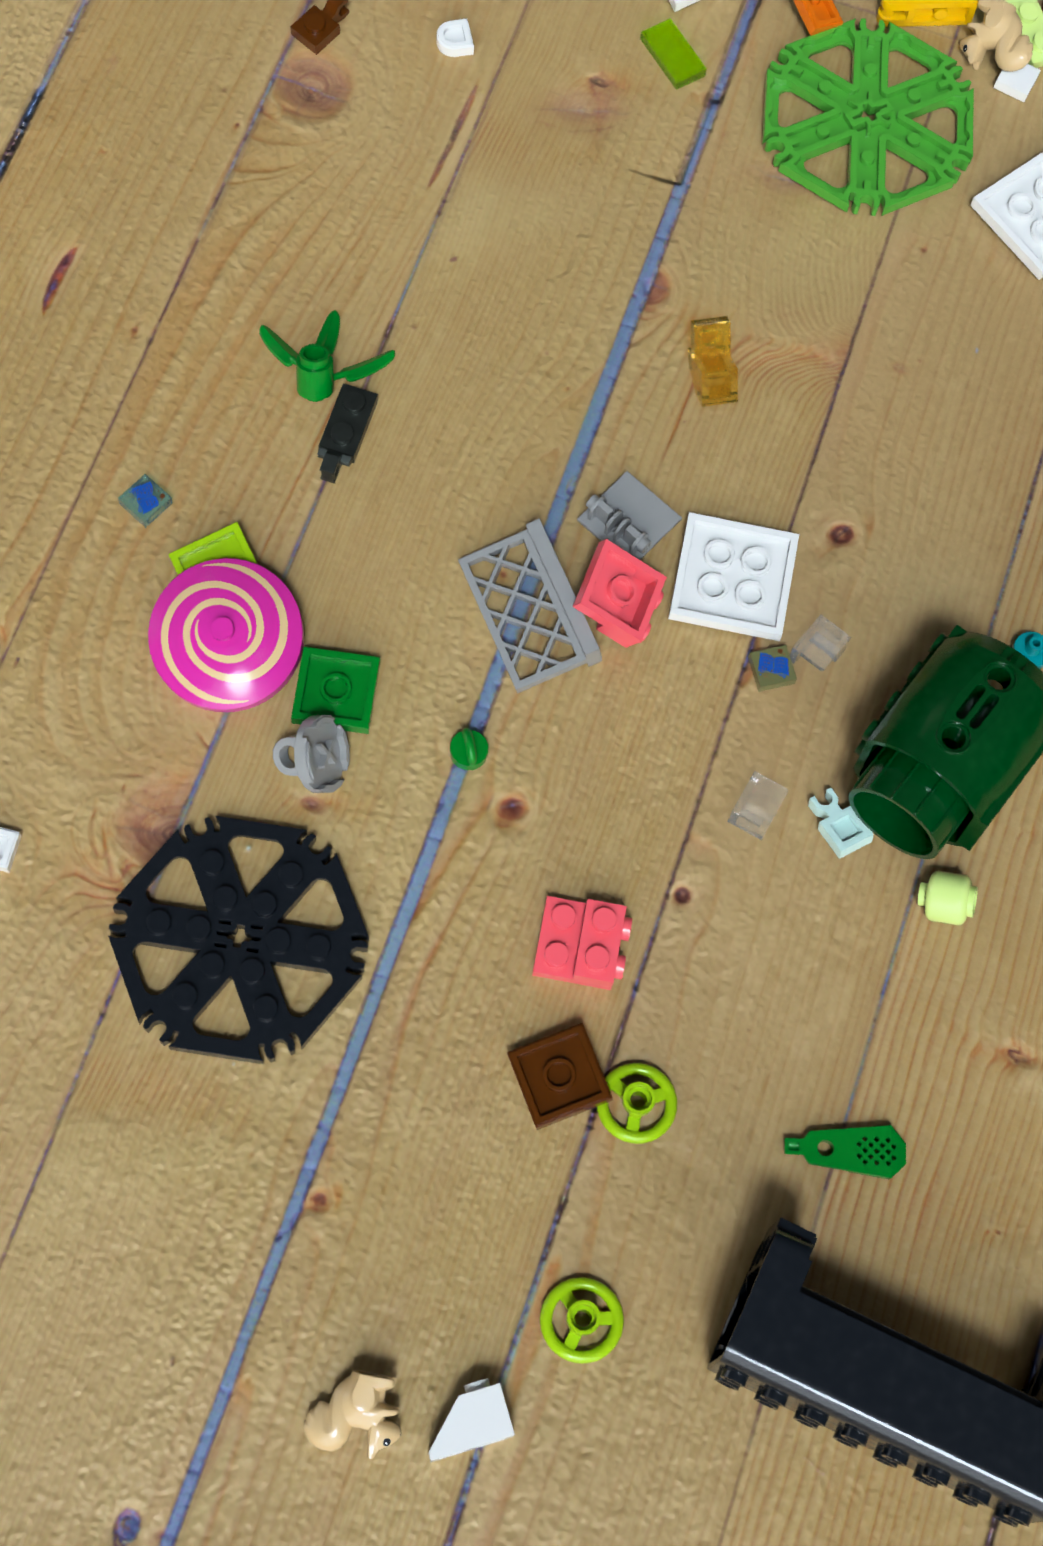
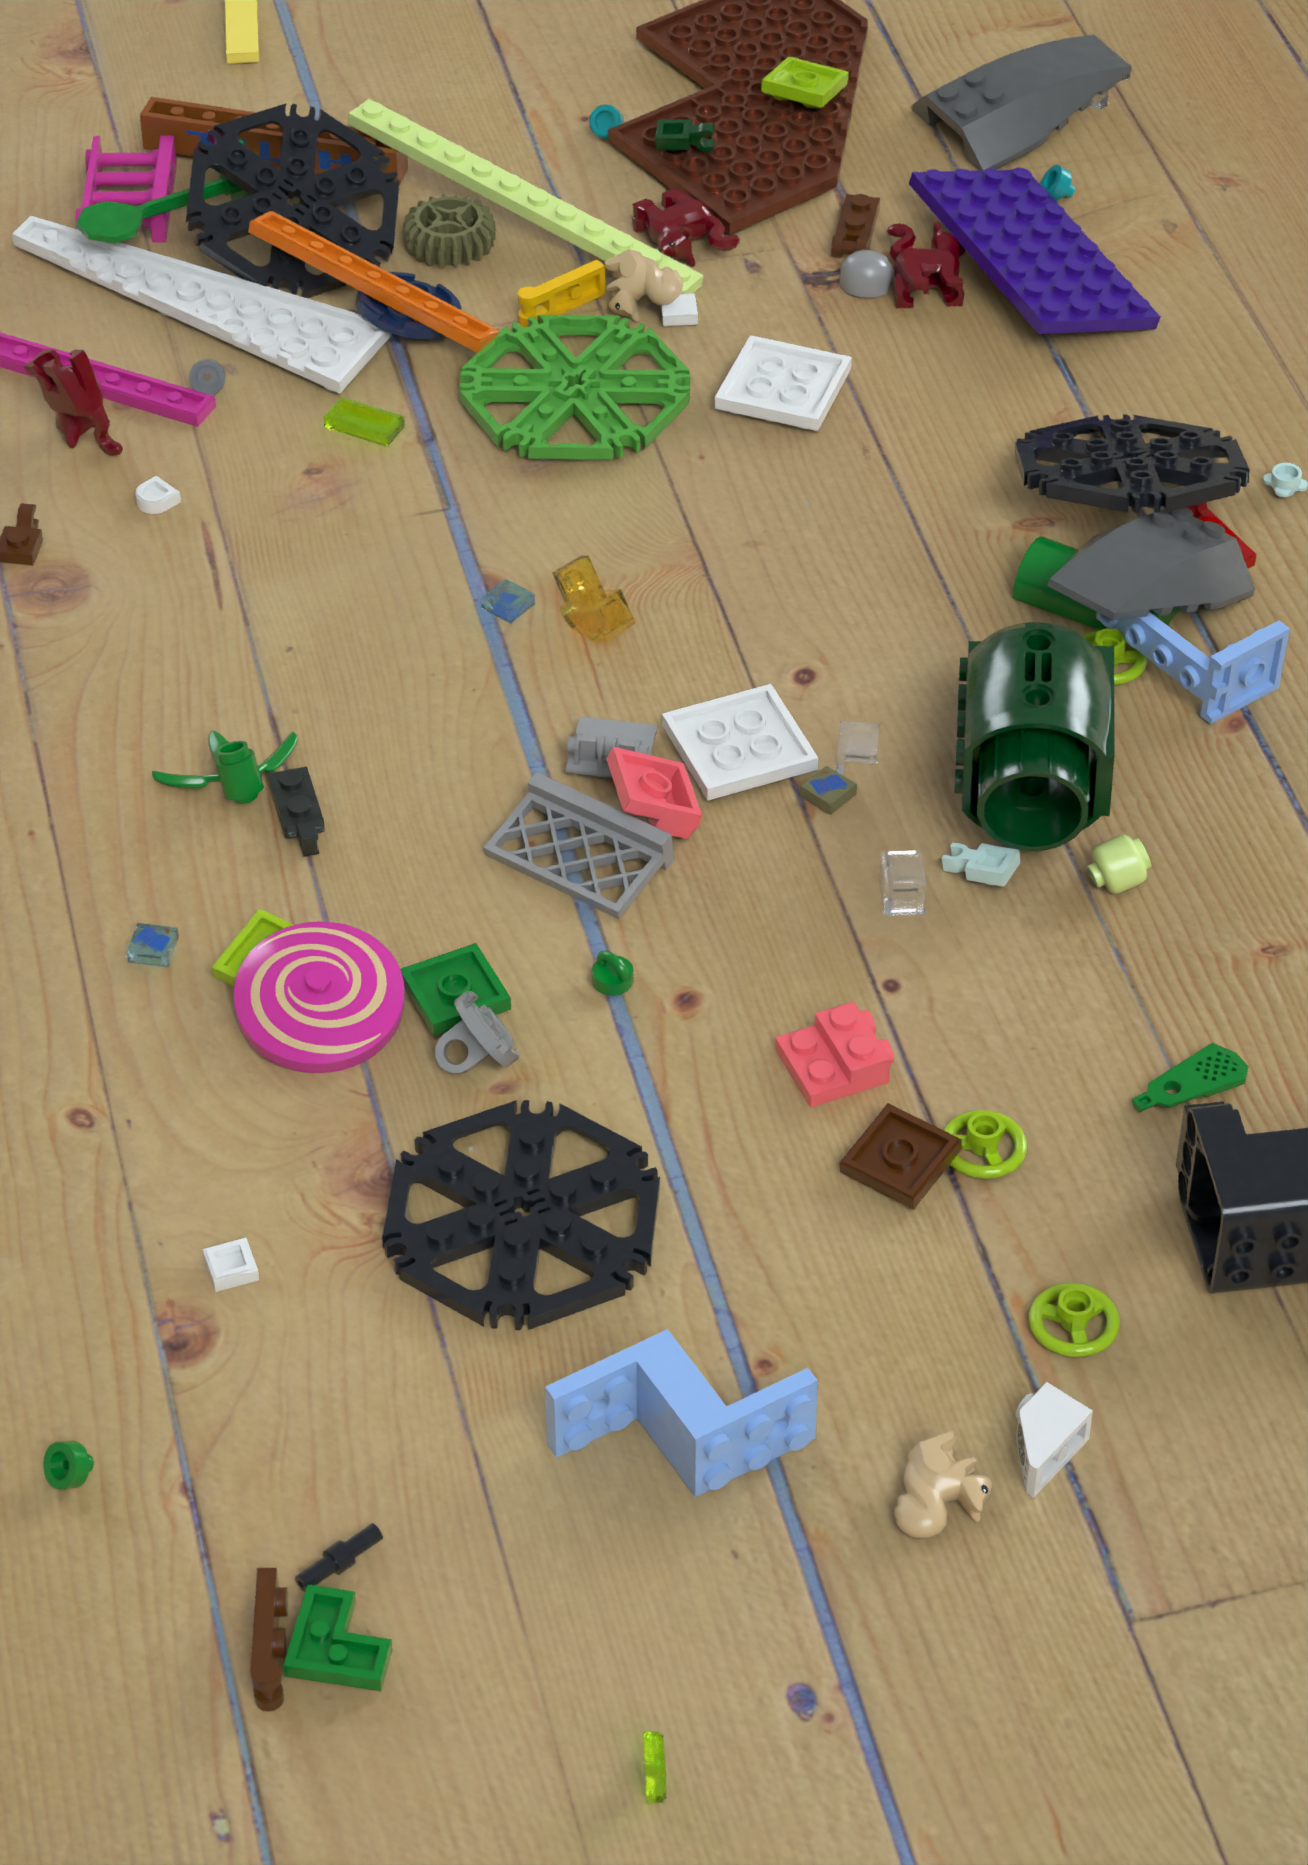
camera: 25 degrees left, 25 degrees down
(202, 1225) = (681, 1413): none -> light blue bracket
(656, 313) = (508, 601): none -> clear light blue tile

